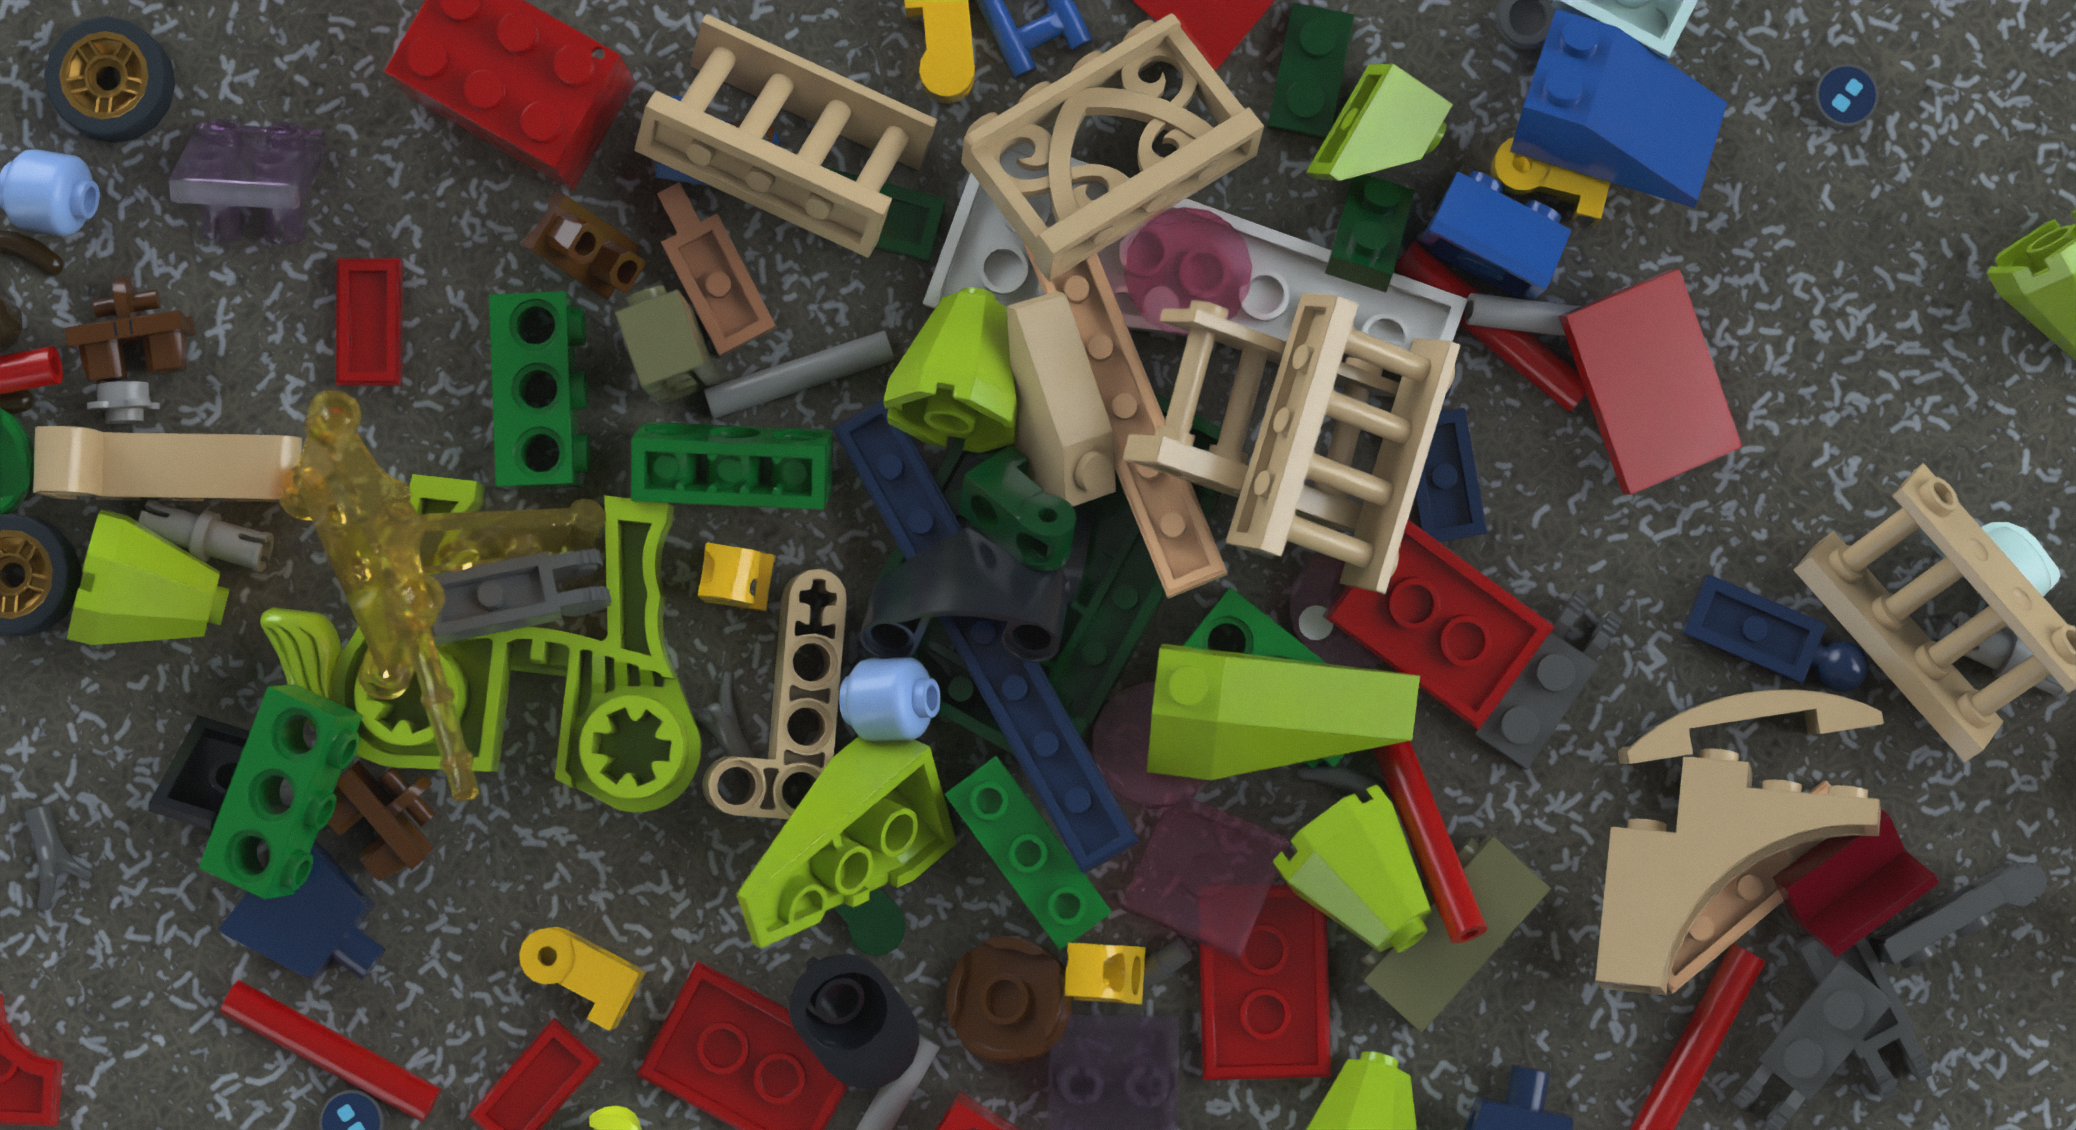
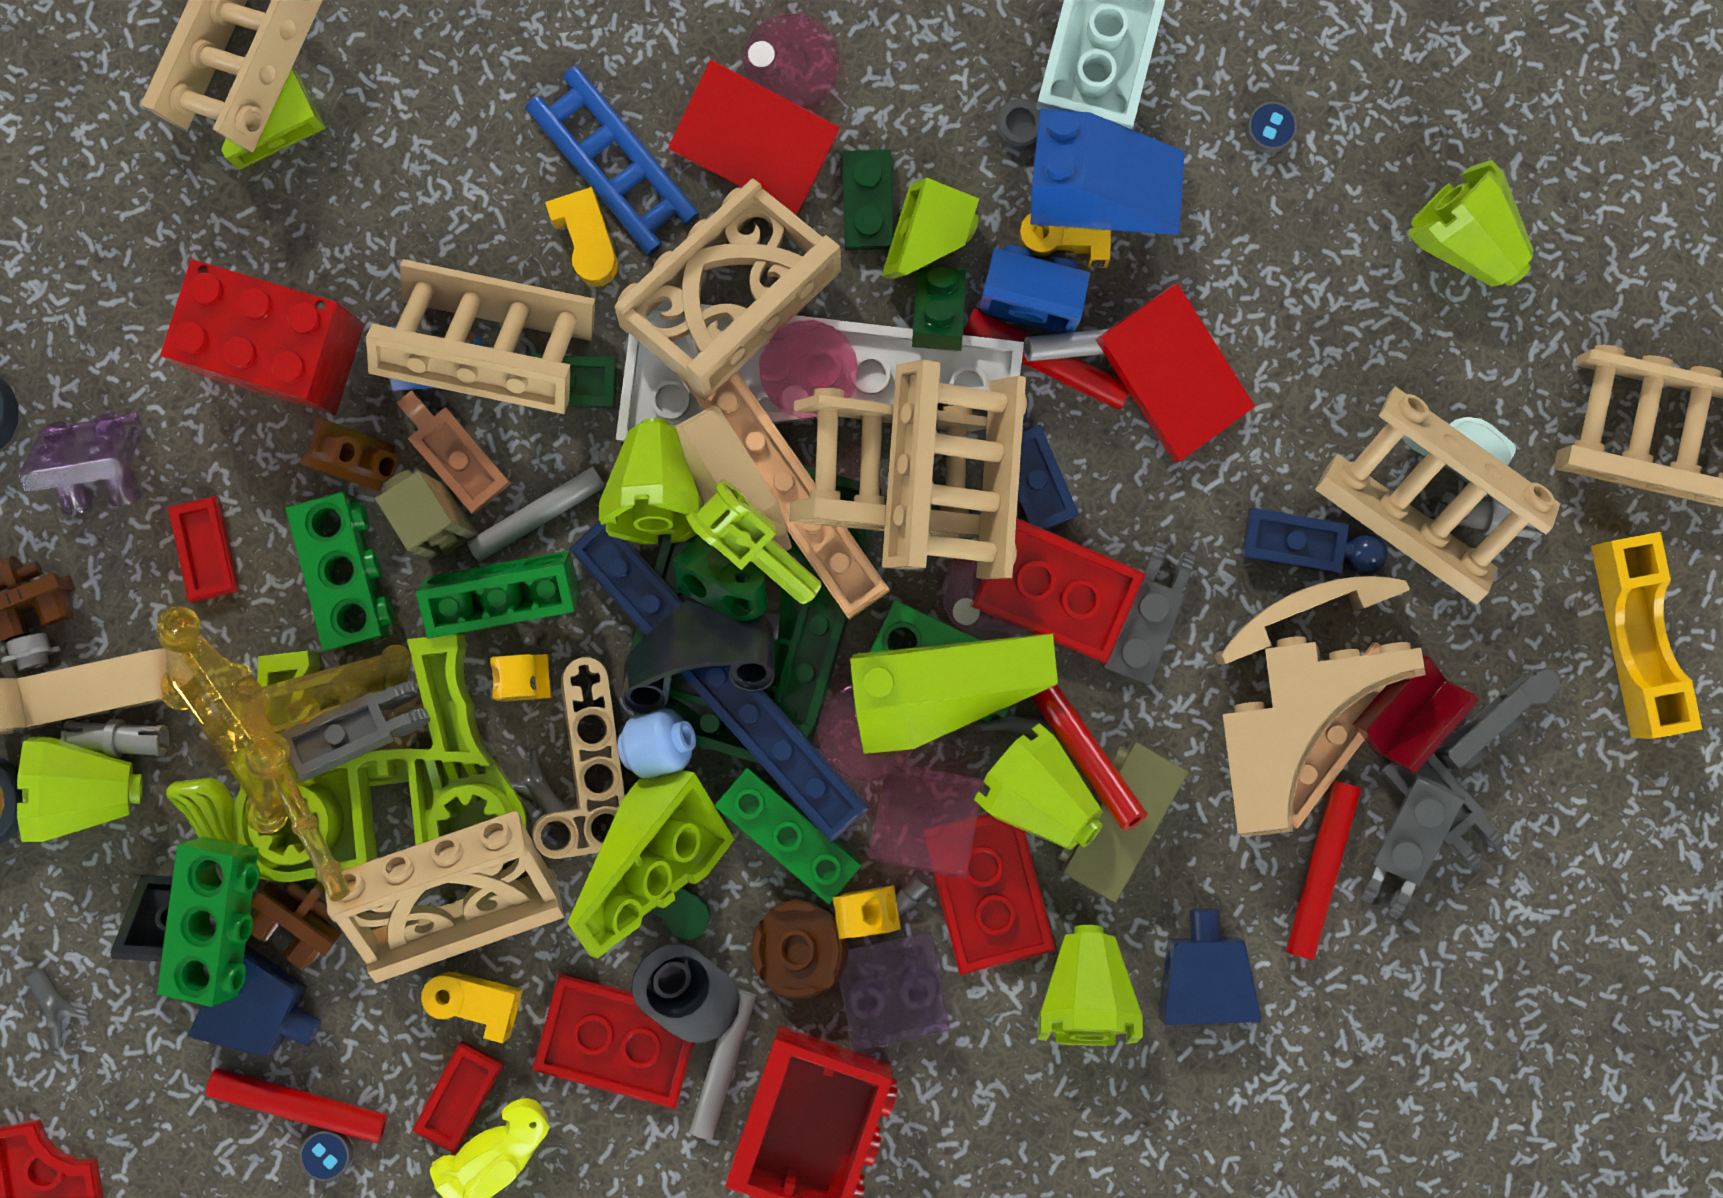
camera: 10 degrees left, 0 degrees up
(547, 873) = (427, 934): none -> tan fence
(1066, 464) = (746, 535): none -> lime connector

